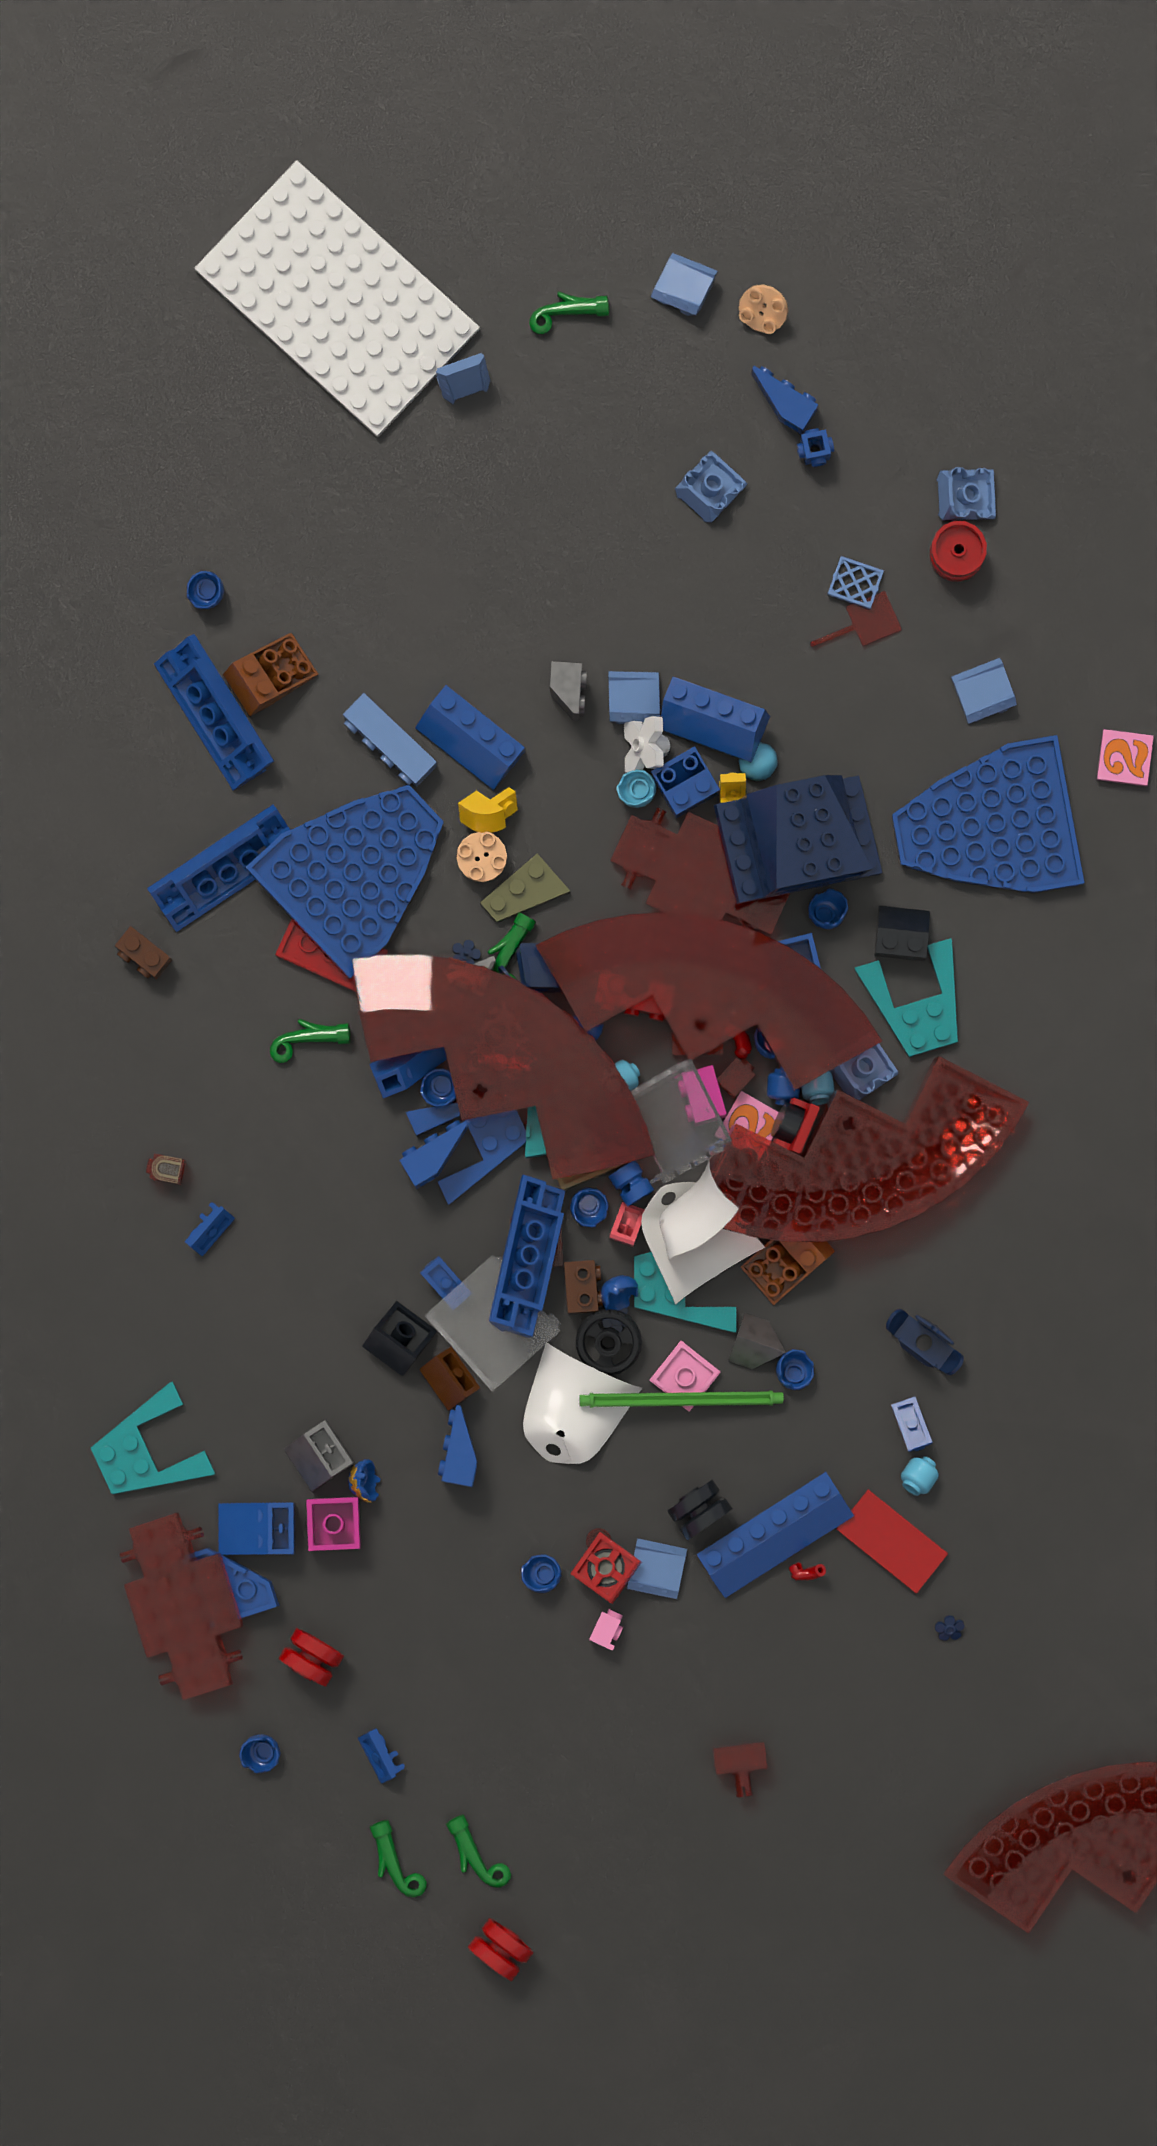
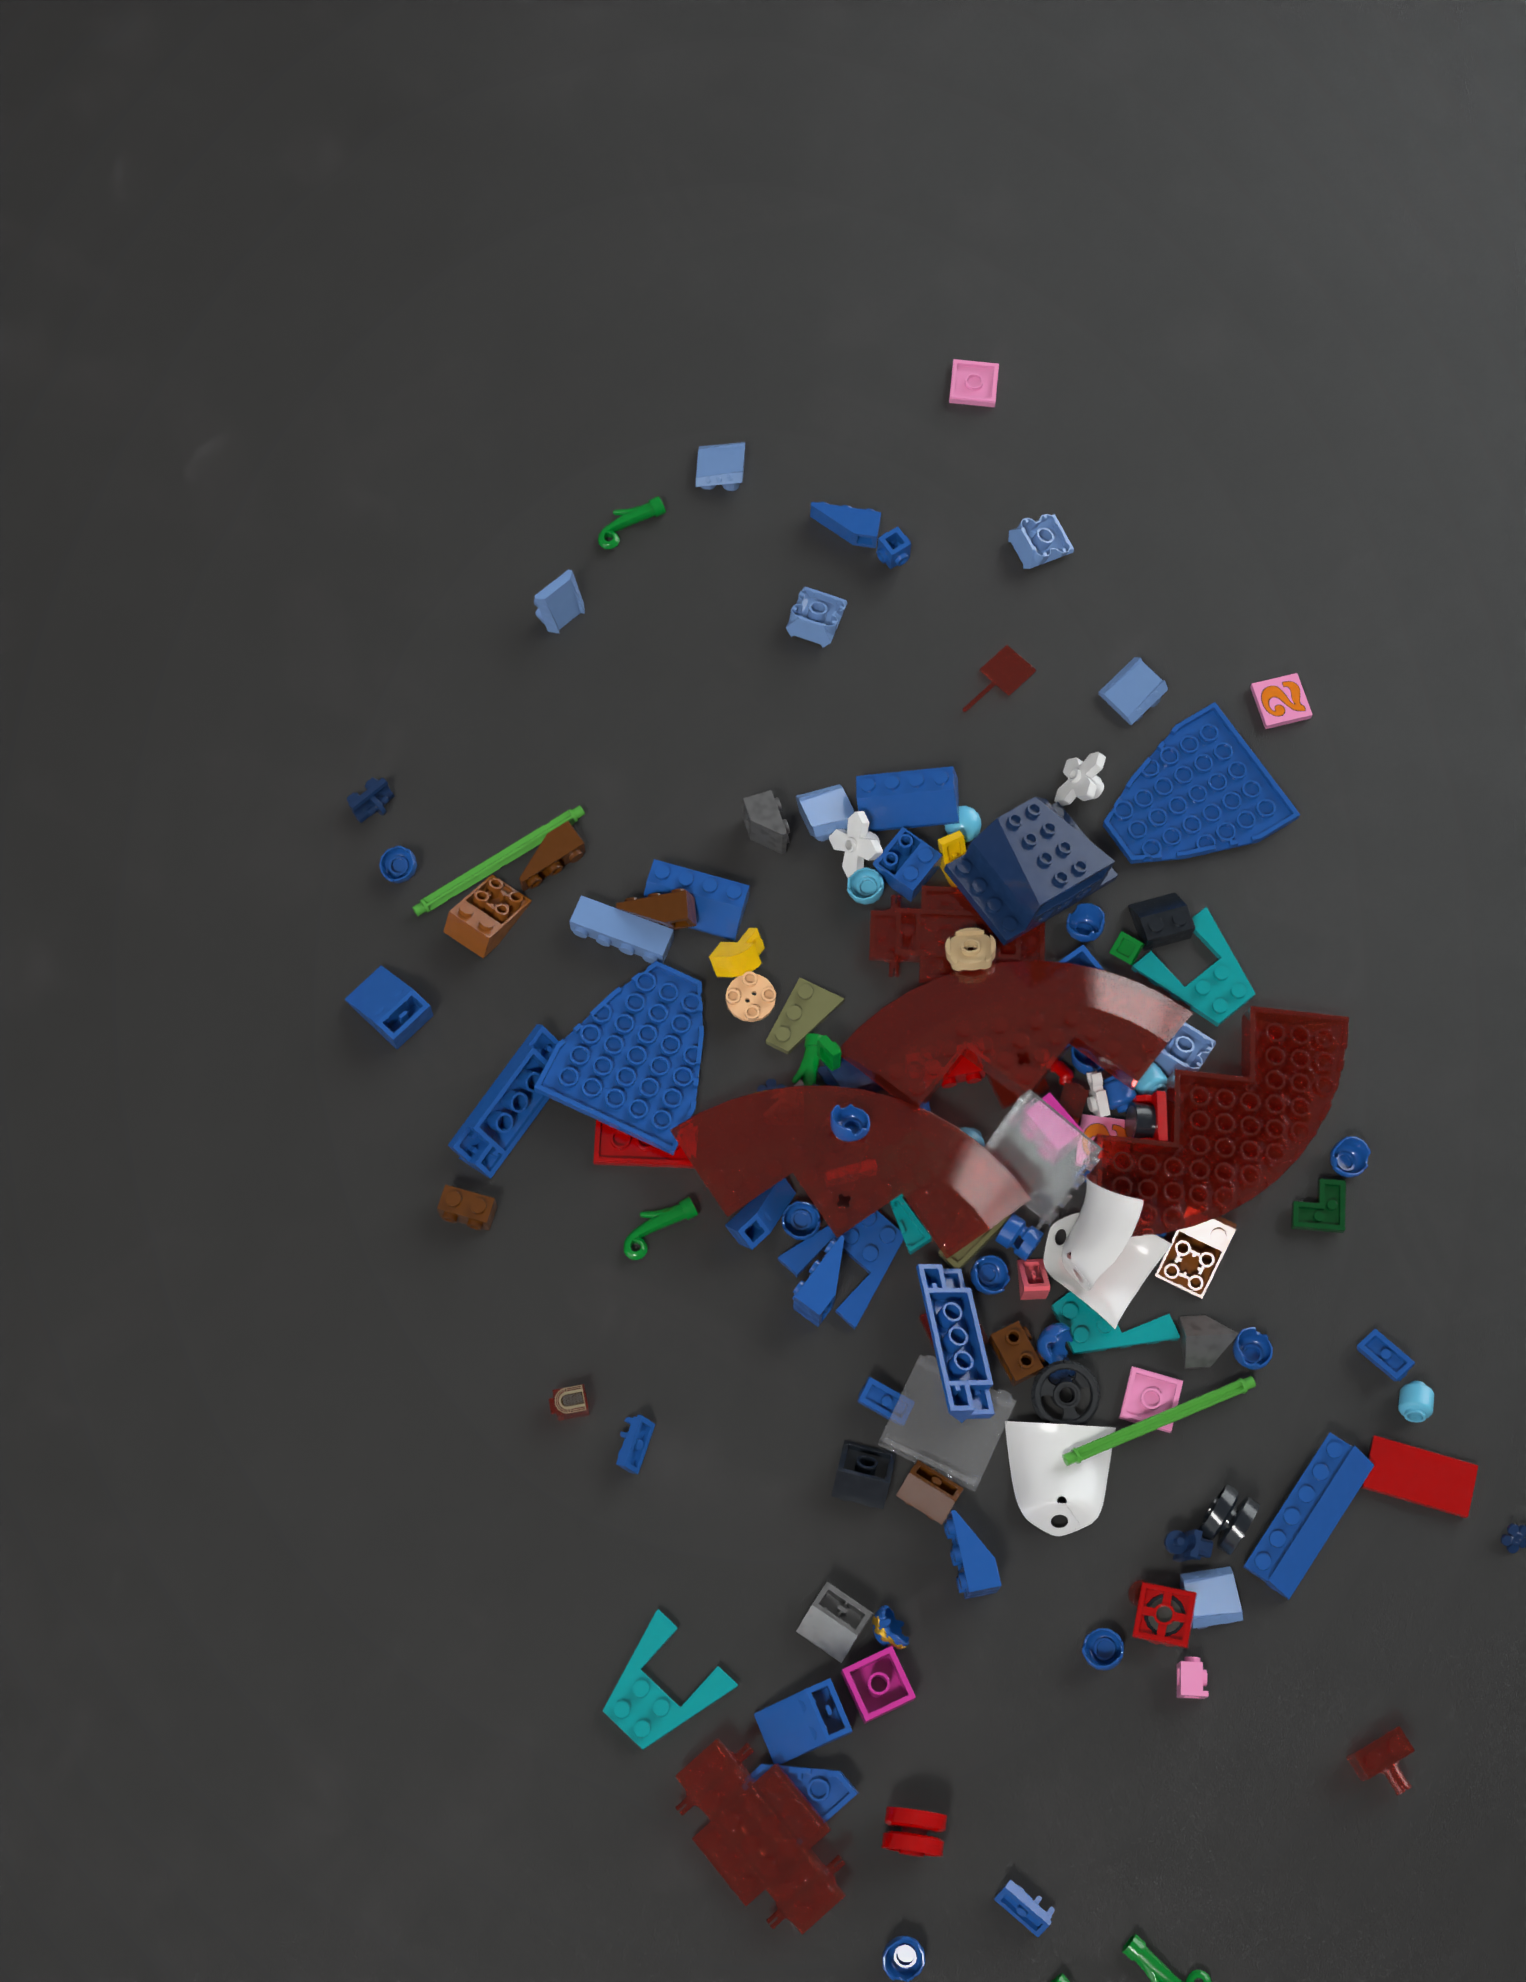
camera: 25 degrees left, 15 degrees down
(144, 728) = (390, 1006): none -> blue slope
(204, 514) = (372, 800): none -> dark blue hips
(214, 712) = (449, 967): blue slope -> none
(302, 622) = (495, 862): none -> bright green piece
(337, 298) = (419, 585): white plate -> none
(358, 635) = (554, 852): none -> reddish brown slope
(438, 743) = (671, 910): none -> reddish brown slope
(511, 1025) = (849, 1123): none -> blue hair
(527, 945) = (829, 1052): none -> green plate
(653, 1516) = (1188, 1545): none -> dark blue hips
(698, 909) = (979, 958): none -> tan plate
(753, 303) = (809, 457): light nougat plate -> none
(760, 1084) = (1098, 1099): none -> white plate
(807, 1574) = (1358, 1540): red arm -> none
(836, 576) = (978, 661): medium blue window -> none
(856, 948) = (1126, 948): none -> green plate
(890, 765) = (1082, 779): none -> white plant
(923, 1275) = (1327, 1214): none -> dark green plate
(940, 1353) = (1376, 1281): dark blue piece -> none
(966, 538) = (1056, 585): red wheel -> none
(968, 1232) = (1349, 1156): none -> blue hair
(979, 290) = (974, 383): none -> bright pink tile

